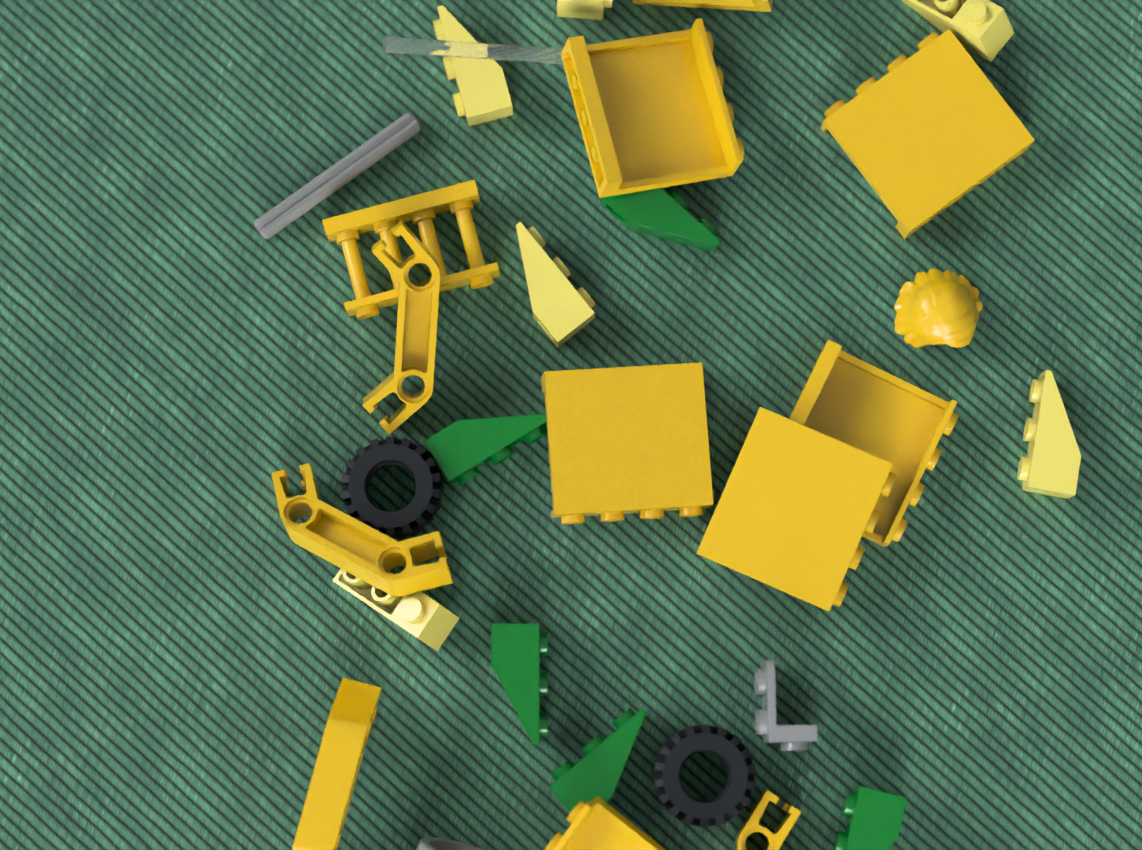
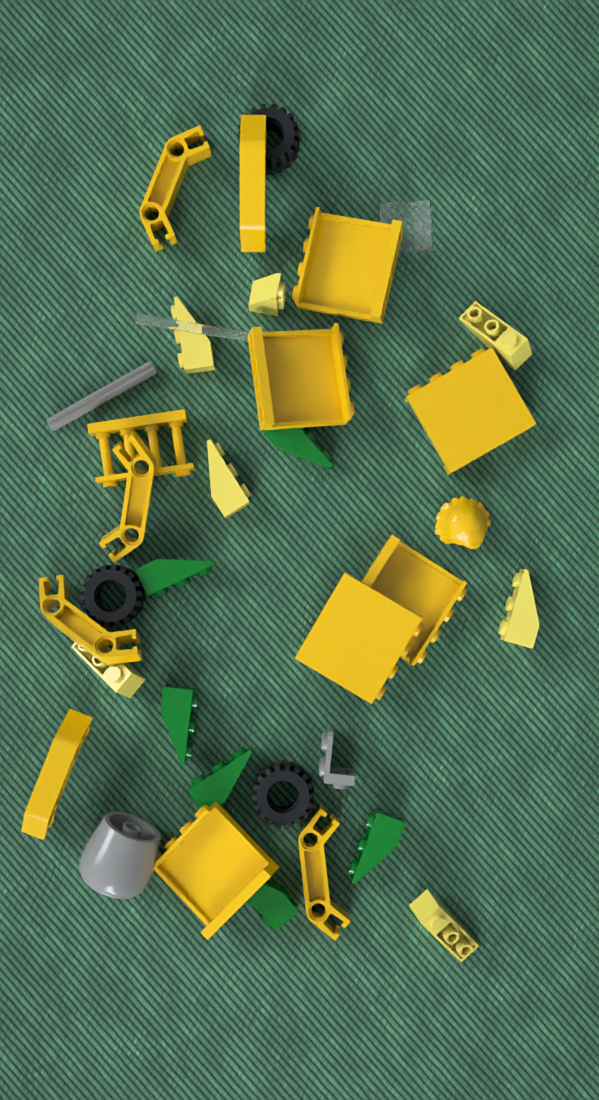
camera: 10 degrees right, 5 degrees up
(627, 442) = (260, 584): yellow panel -> none

